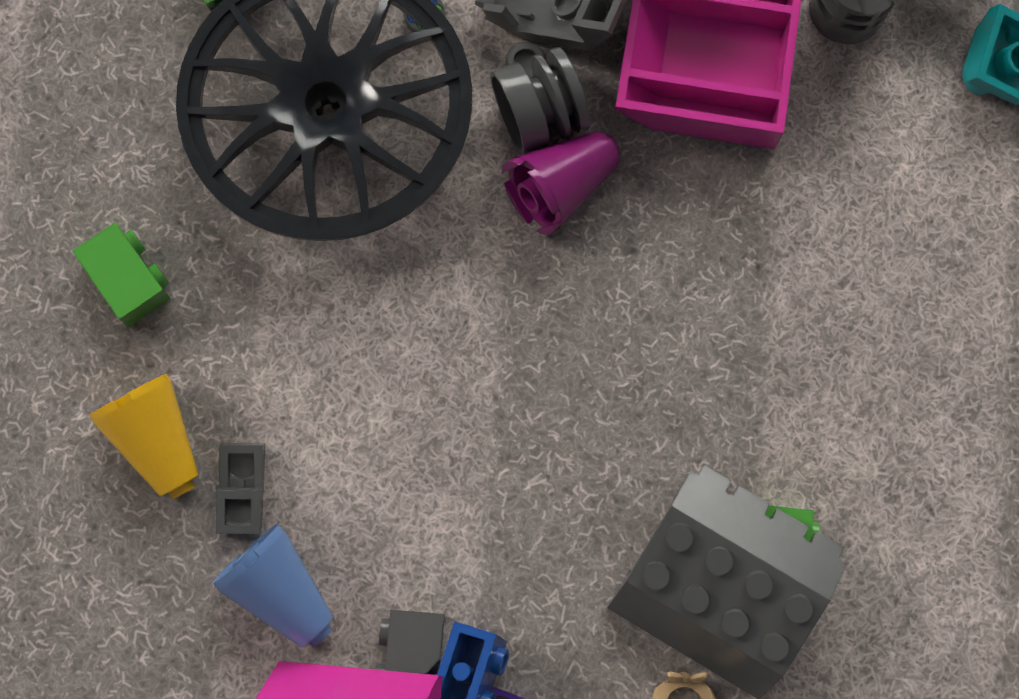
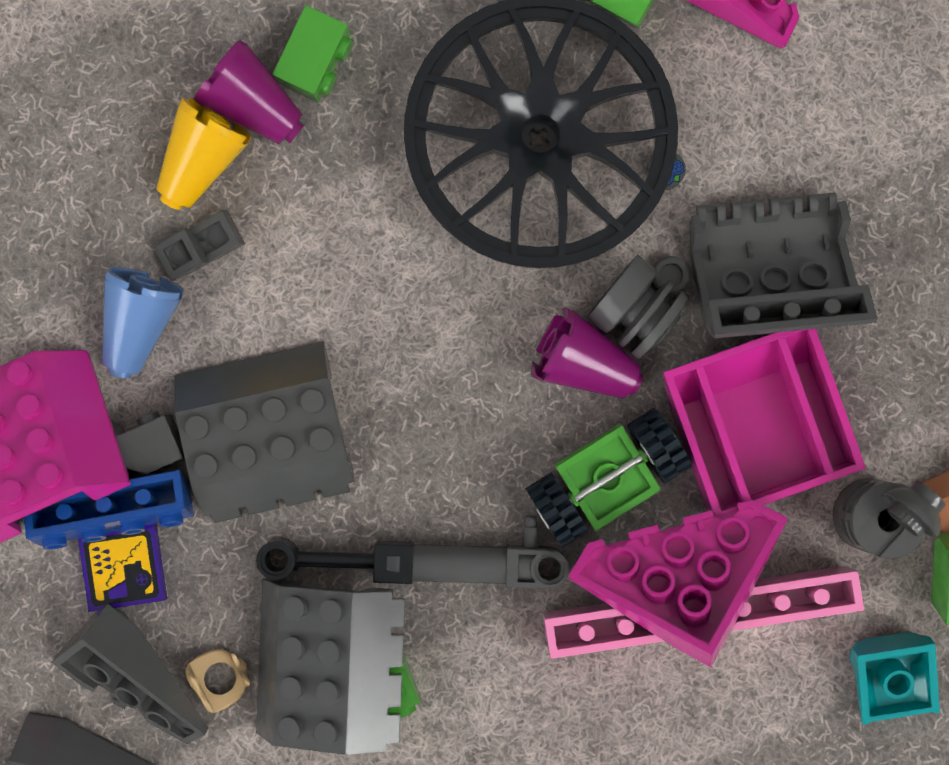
camera: 70 degrees right, 10 degrees up
(127, 353) = (250, 96): none -> magenta cone
(462, 523) = (262, 432): none -> dark grey slope
(681, 426) = (408, 562): none -> dark grey piece
(686, 214) = (608, 476): none -> plate
(823, 187) = (687, 578): none -> dark pink slope
(860, 200) = (770, 602): none -> bright pink brick

